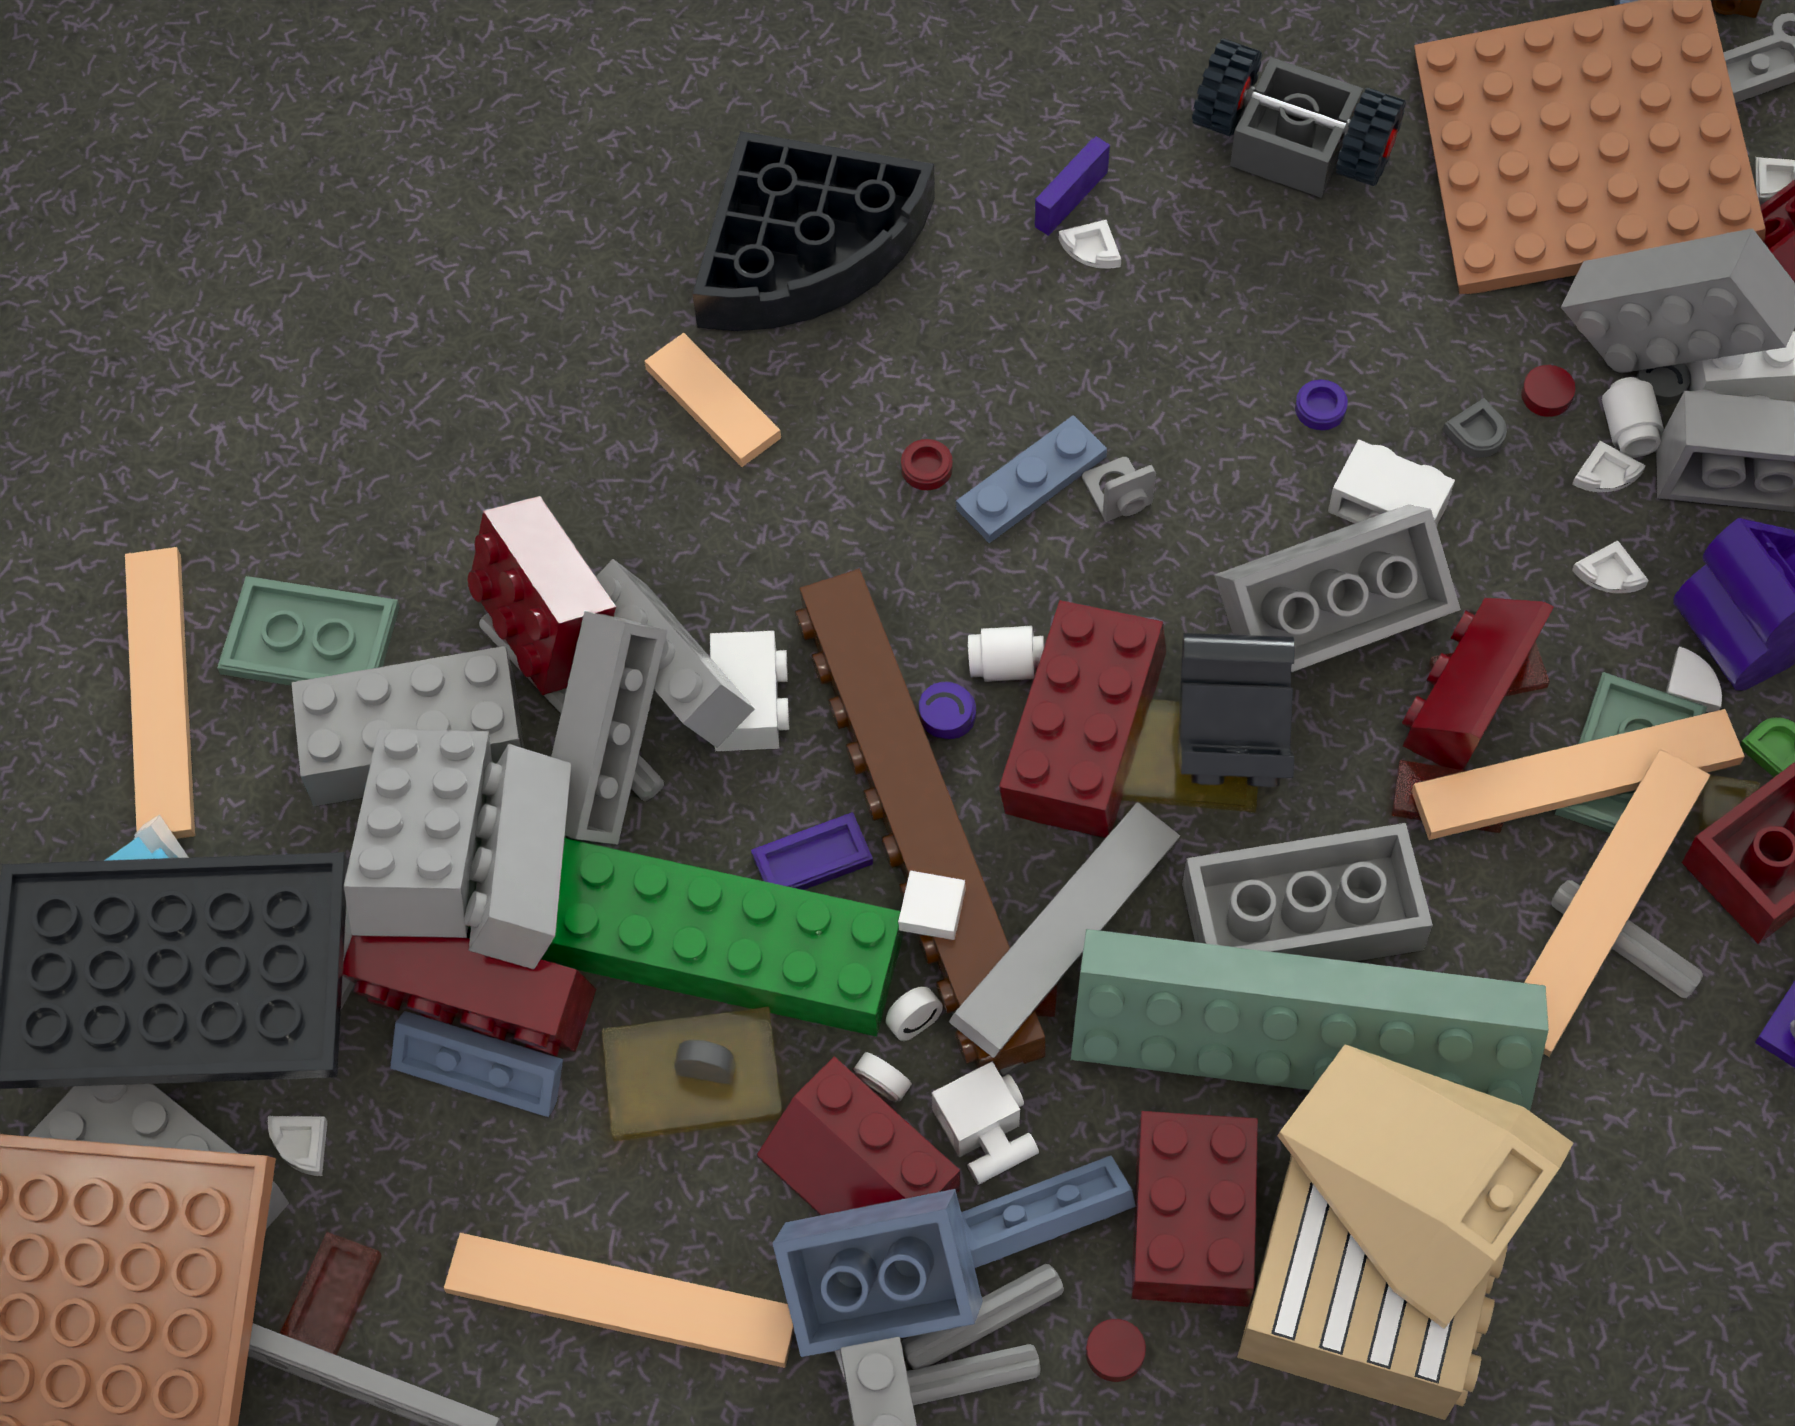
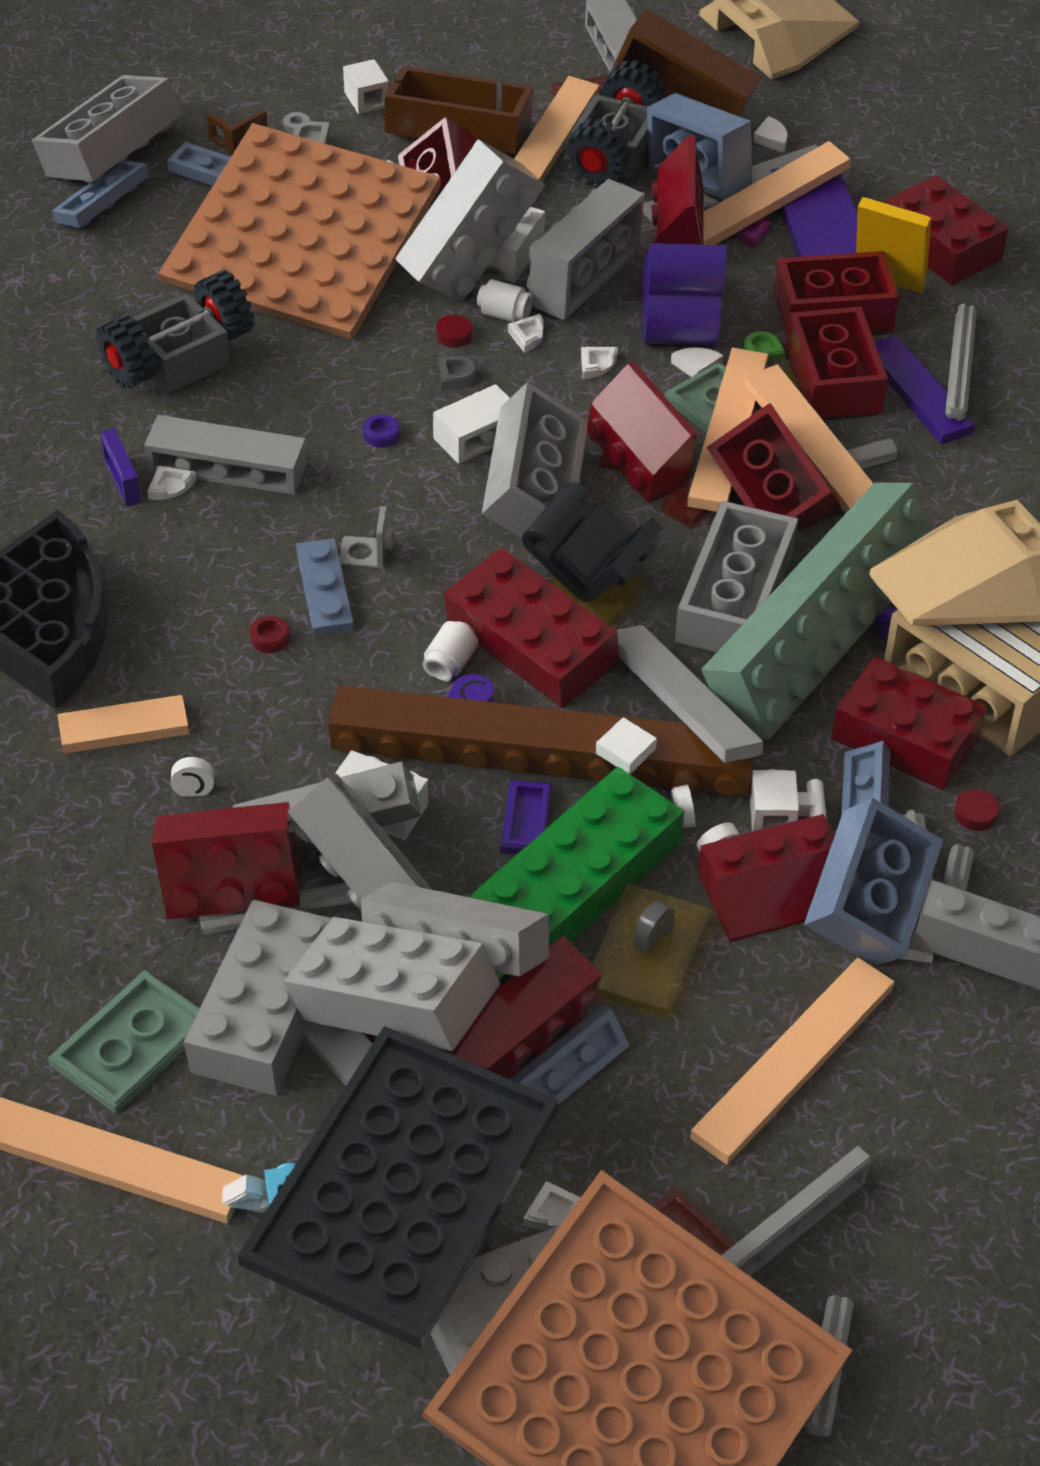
camera: 65 degrees left, 15 degrees down
(668, 502) = (192, 777): none -> white tile
(1163, 273) = (227, 454): none -> light grey brick
(1516, 863) = (772, 469): none -> dark red slope

